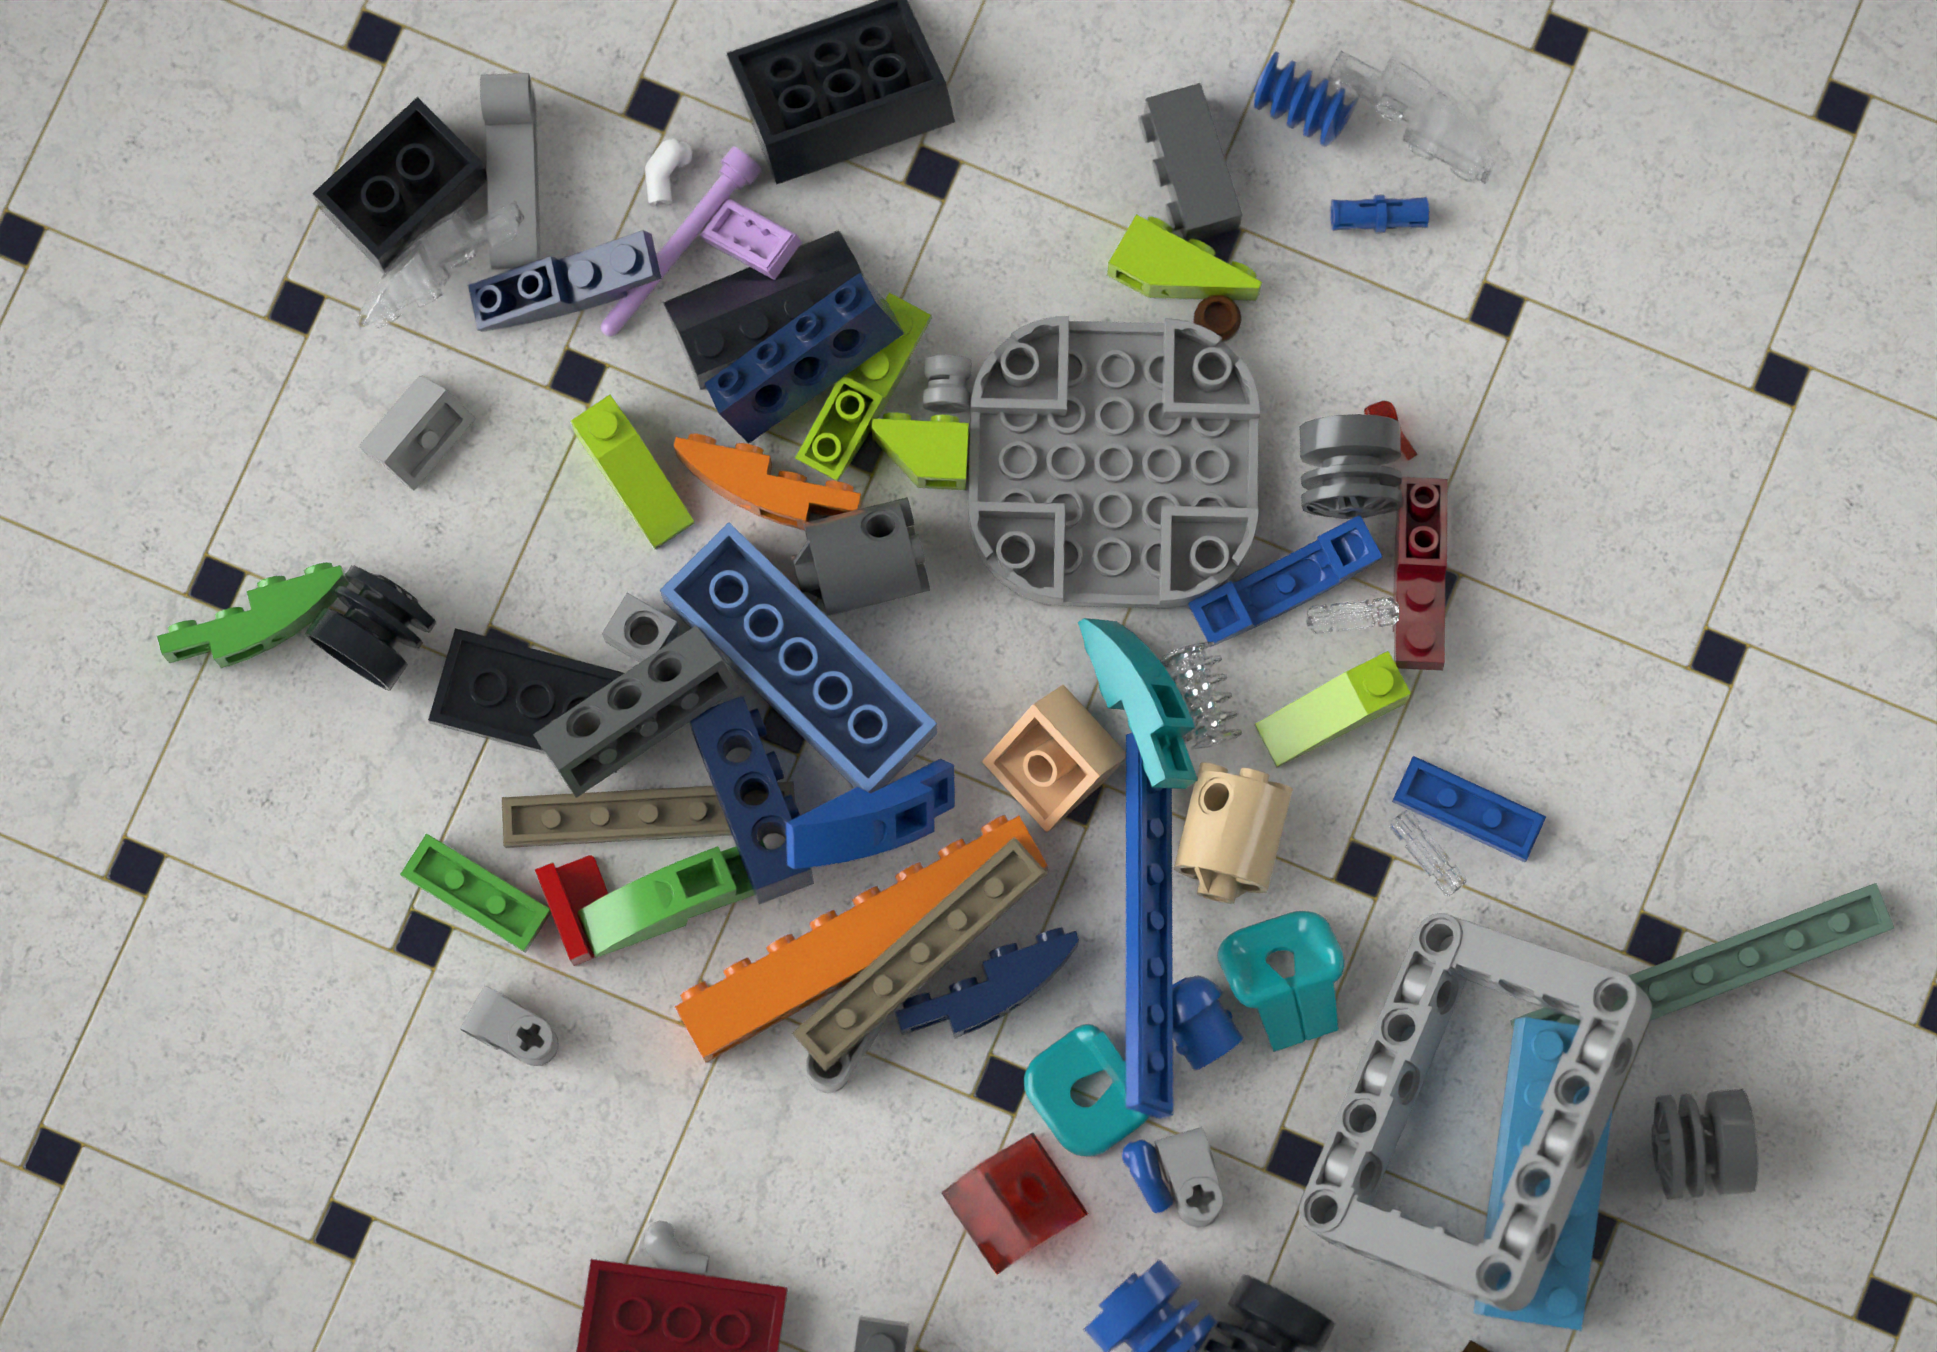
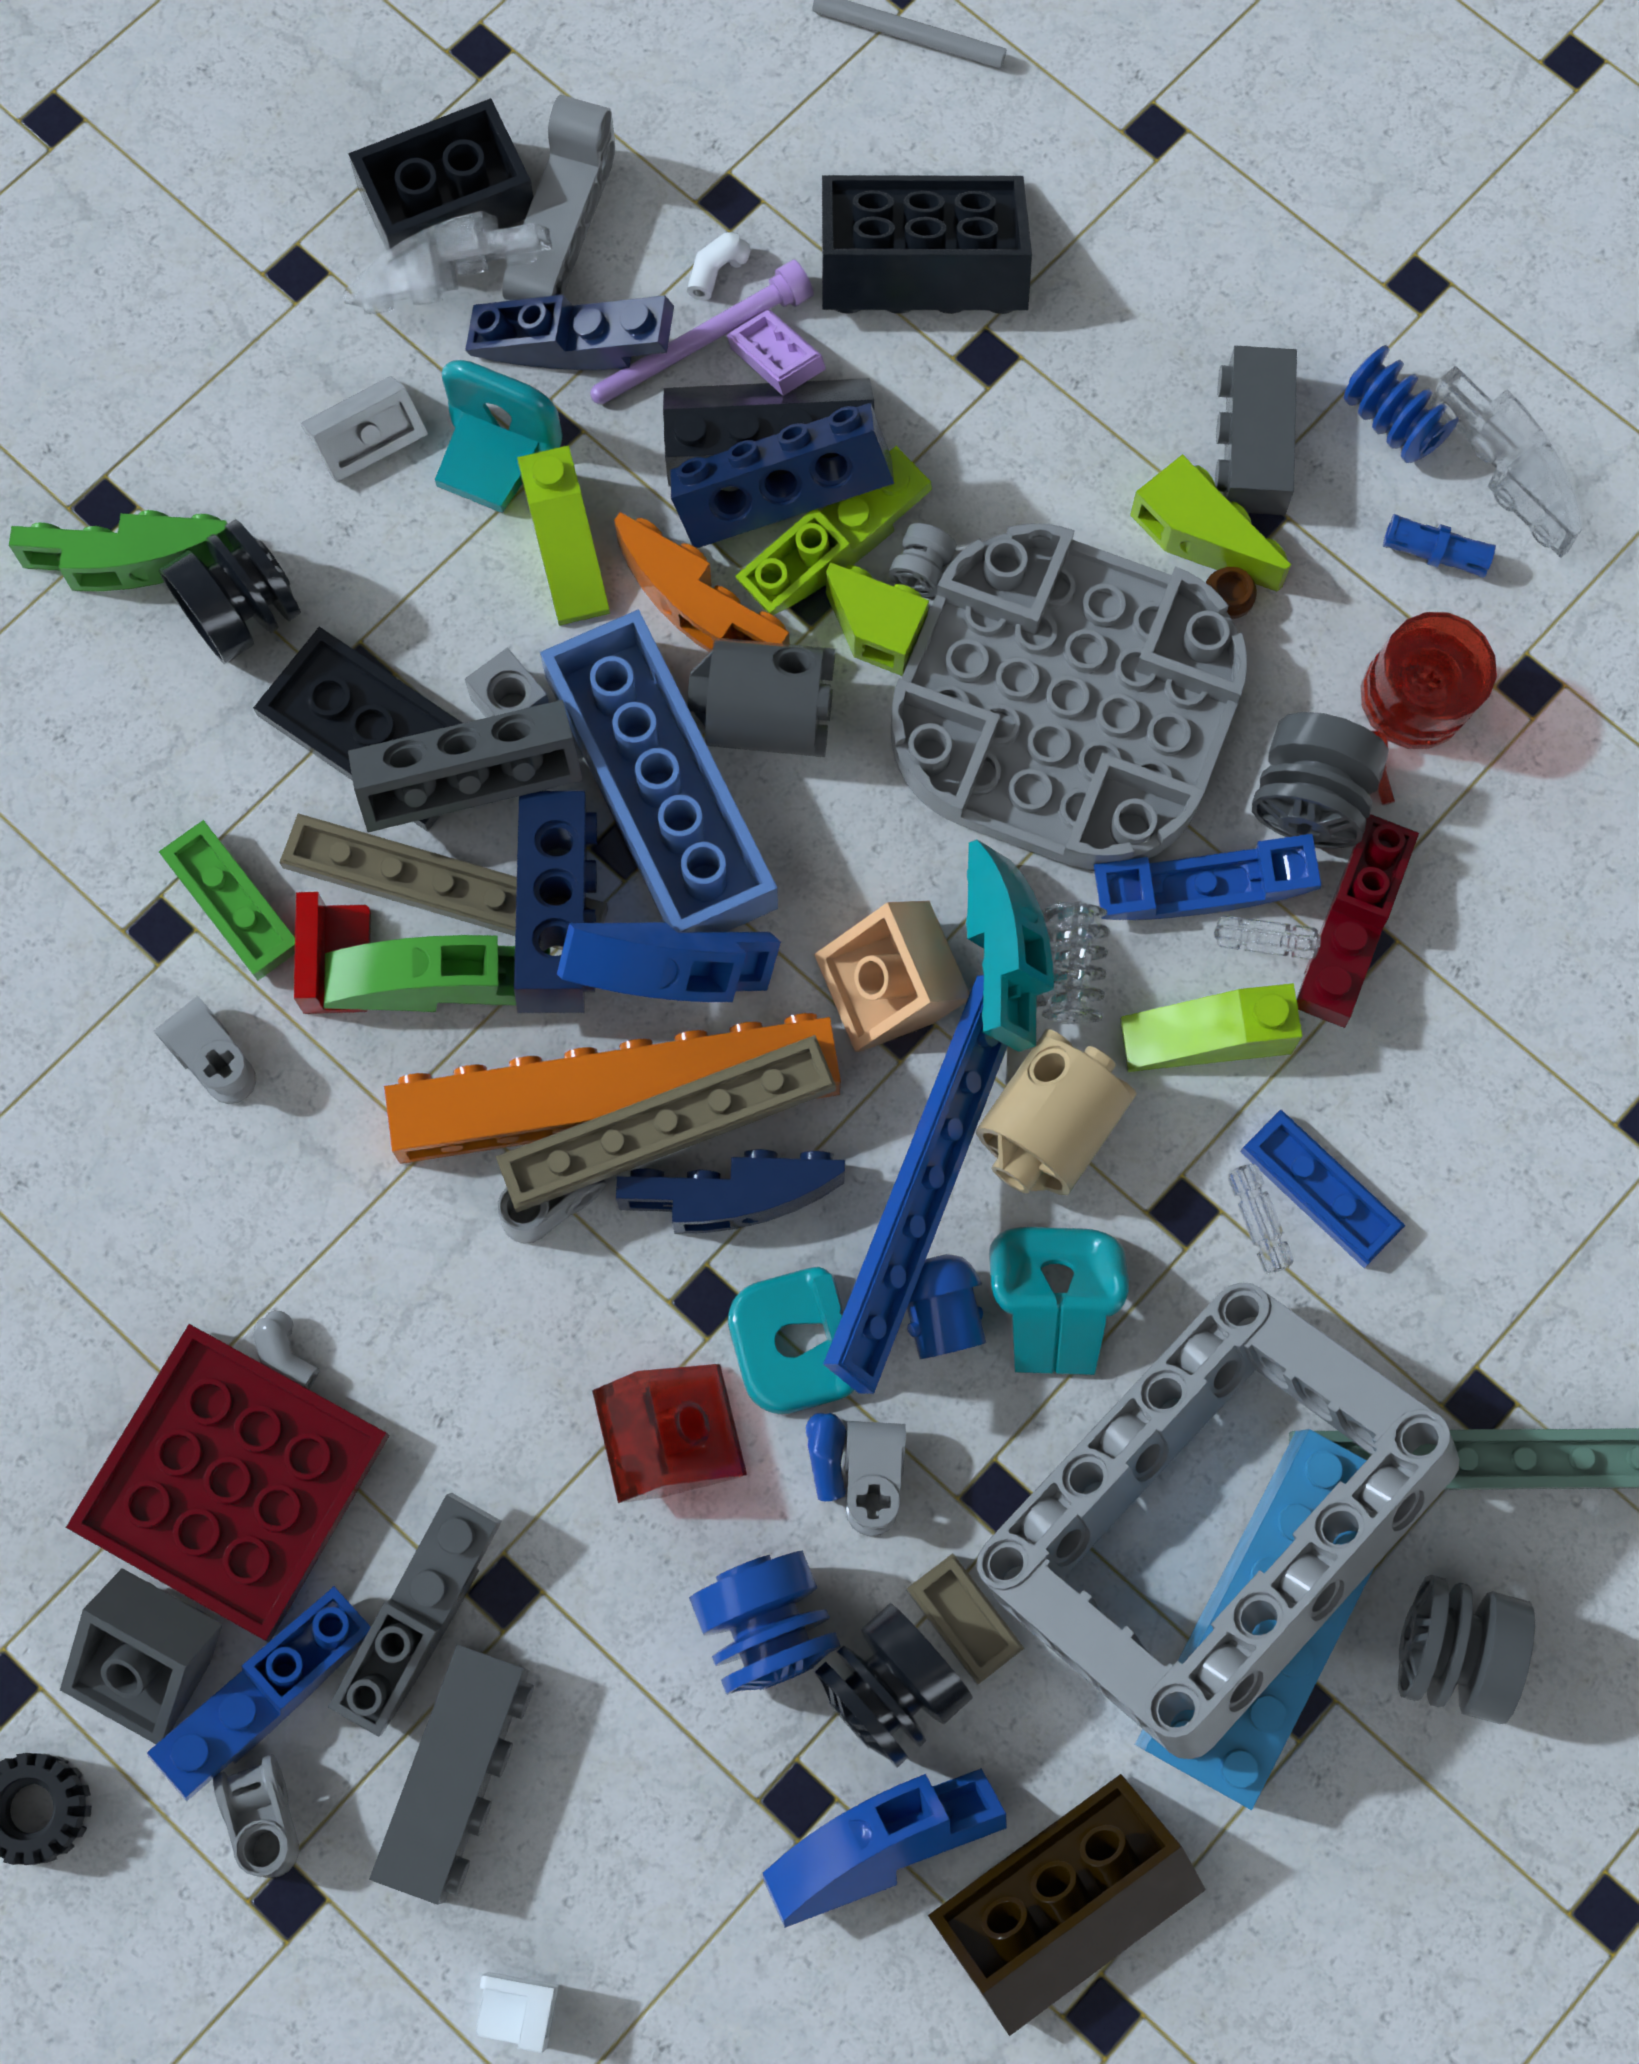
camera: 20 degrees right, 5 degrees down
(532, 422) = (481, 454): none -> teal piece
(1304, 1264) = (965, 1619): none -> dark tan tile
(1422, 322) = (1431, 657): none -> clear red wheel

